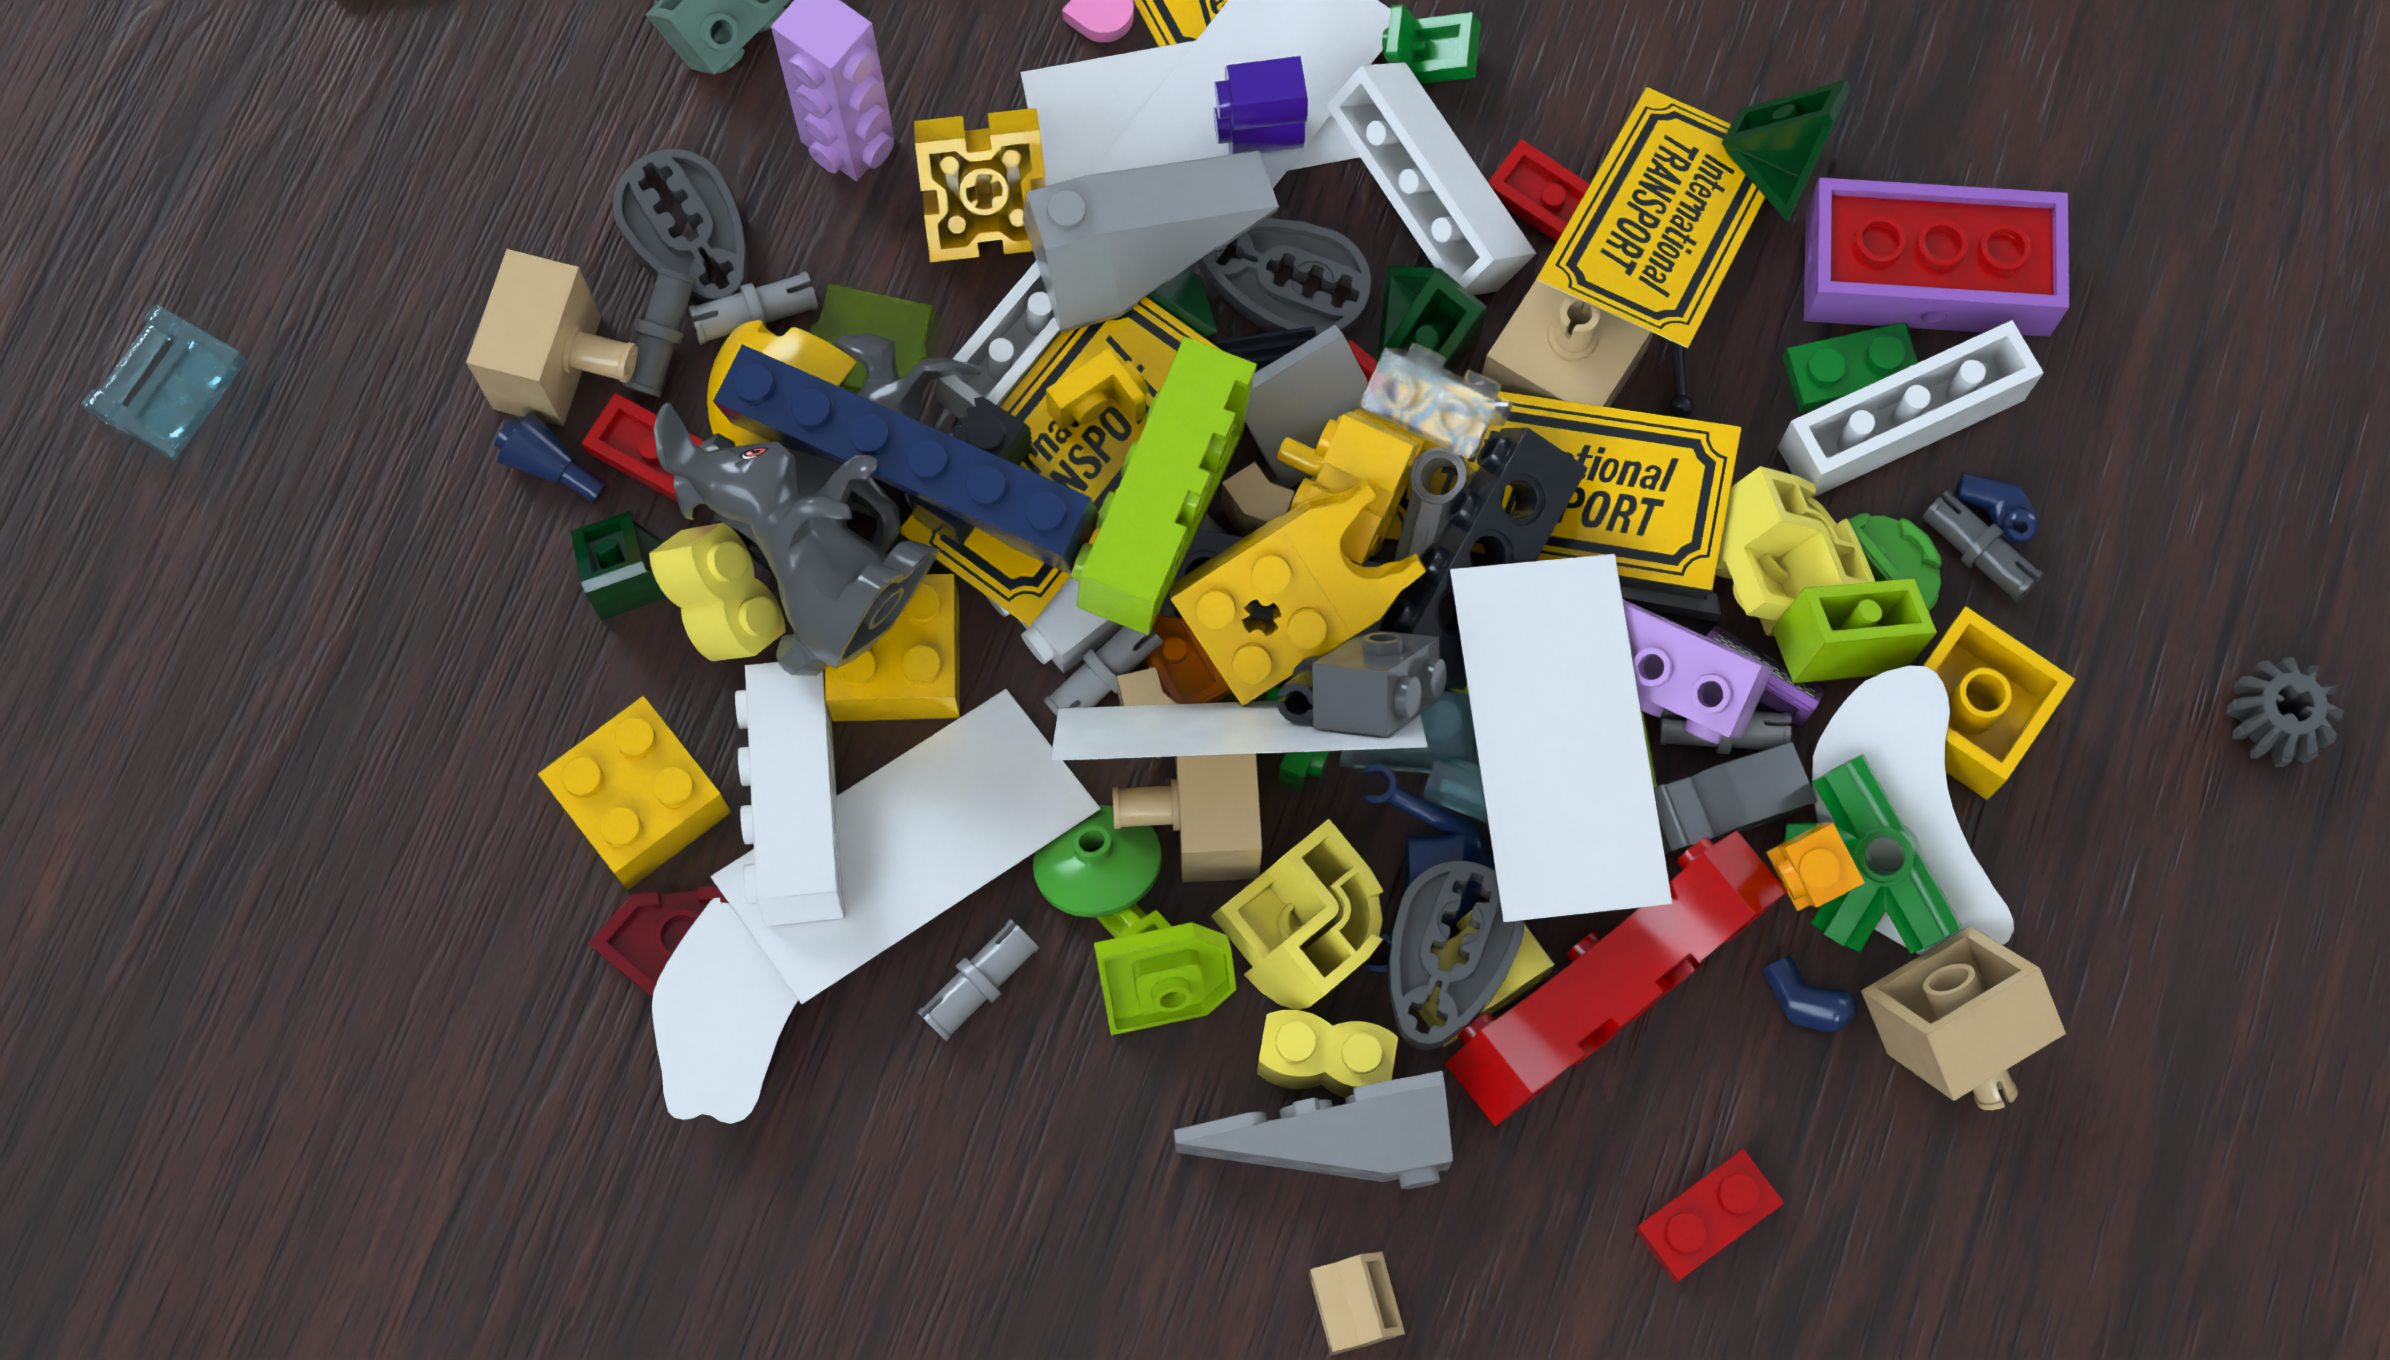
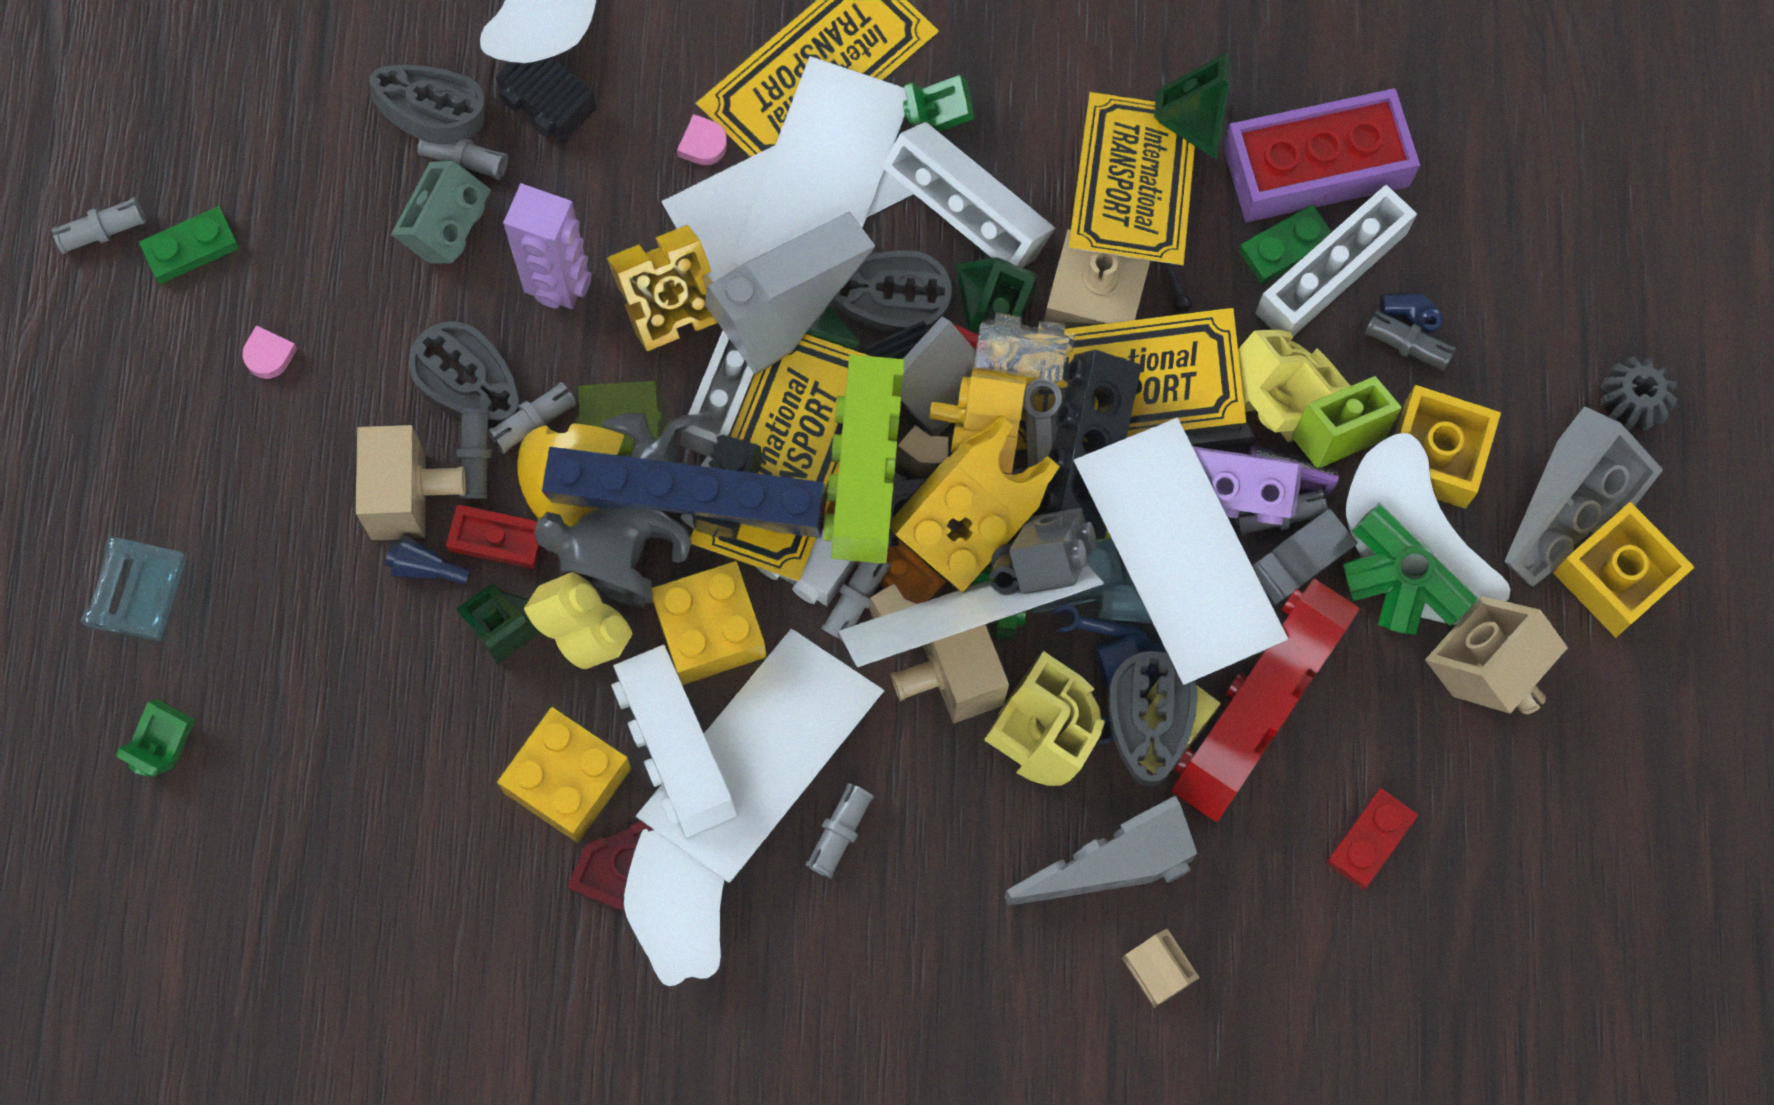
camera: 20 degrees left, 0 degrees up
(124, 587) = (157, 740): none -> green bracket
(439, 126) = (267, 353): none -> bright pink tile
(829, 579) = (659, 588): dark grey animal -> none
(1087, 391) = (788, 410): yellow bracket -> none
(1103, 879) = (898, 740): bright green dish -> none
(1161, 970) = (958, 786): lime piece -> none
(1262, 106) = (840, 180): dark purple brick -> none
(1309, 1052) = (1076, 809): light yellow brick -> none
(1538, 189) = (1044, 184): red plate -> none
(1806, 1004) = (1391, 680): dark blue arm -> none
(1815, 866) = (1373, 586): light orange brick -> none
(1899, 552) = (1358, 360): bright green plate -> none
(2171, 811) = (1585, 482): none -> light grey wedge
(2183, 949) = (1623, 569): none -> yellow brick

